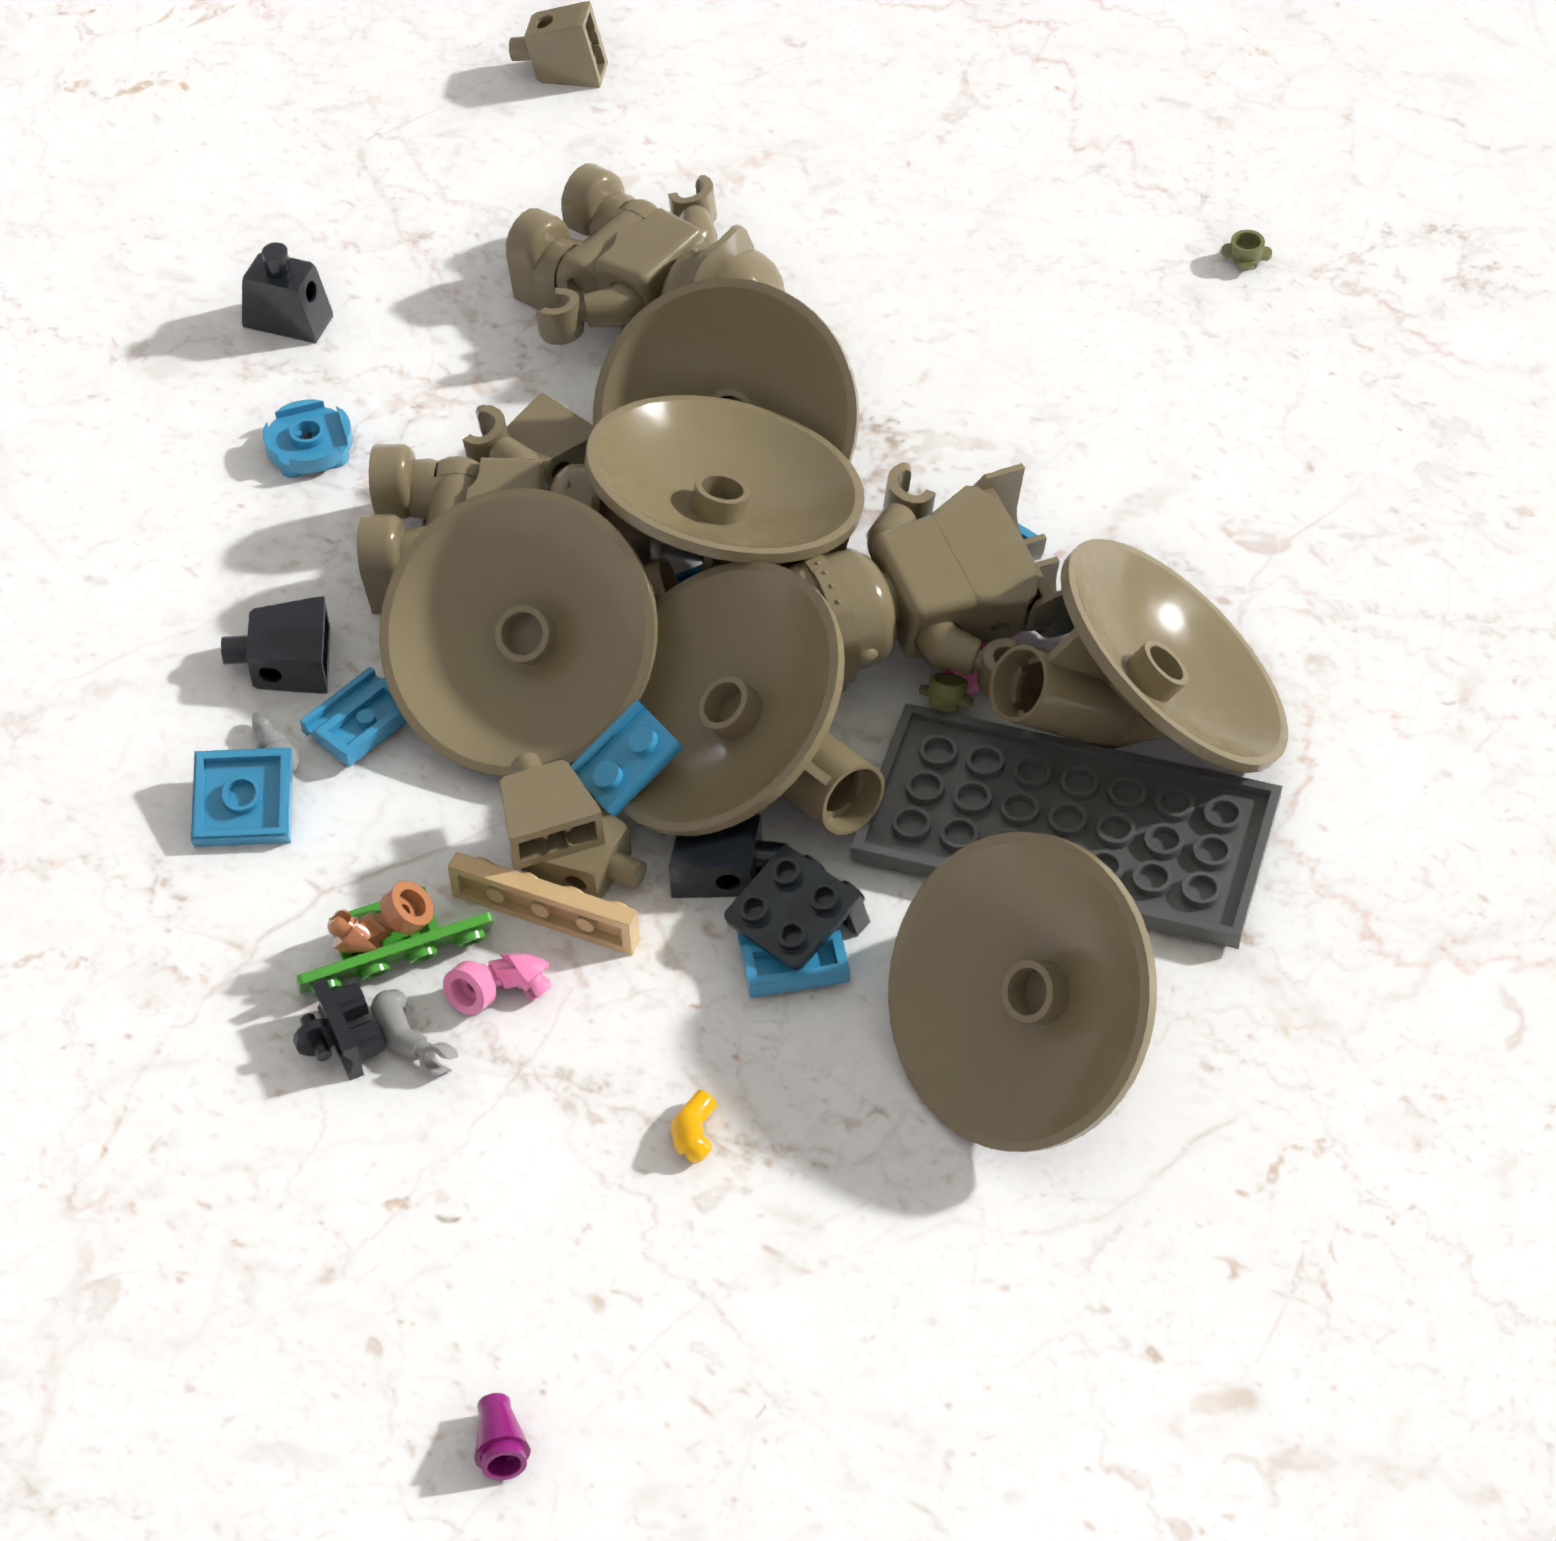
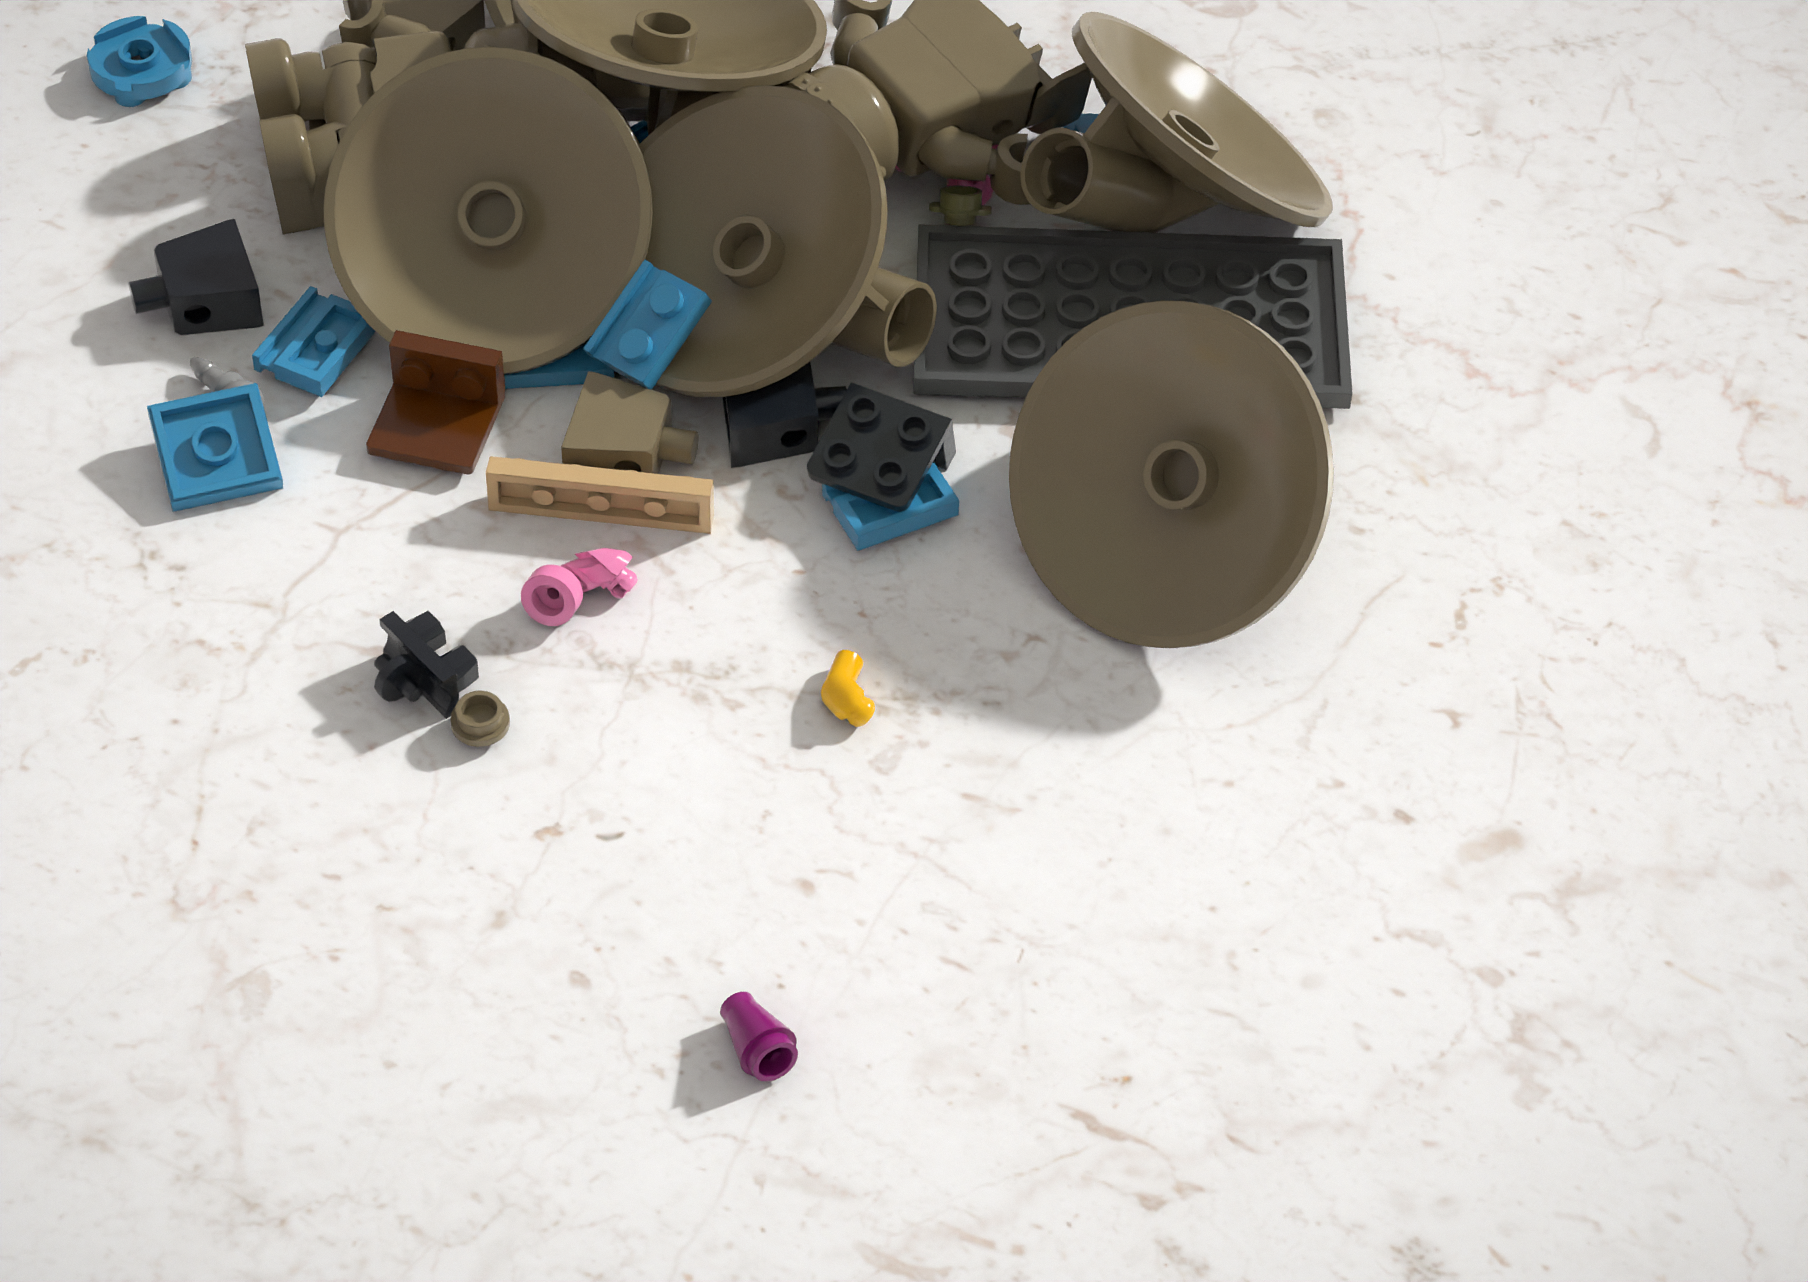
camera: 20 degrees left, 0 degrees up
(372, 1089) = (480, 719): none -> dark tan plate
(397, 947) = (439, 555): bright green bracket -> none
(397, 1035) = (494, 663): light grey arm -> none
(403, 910) = (457, 524): nougat arm -> none
(438, 795) = (438, 403): none -> reddish brown bracket
(547, 811) = (583, 394): dark tan torso -> none

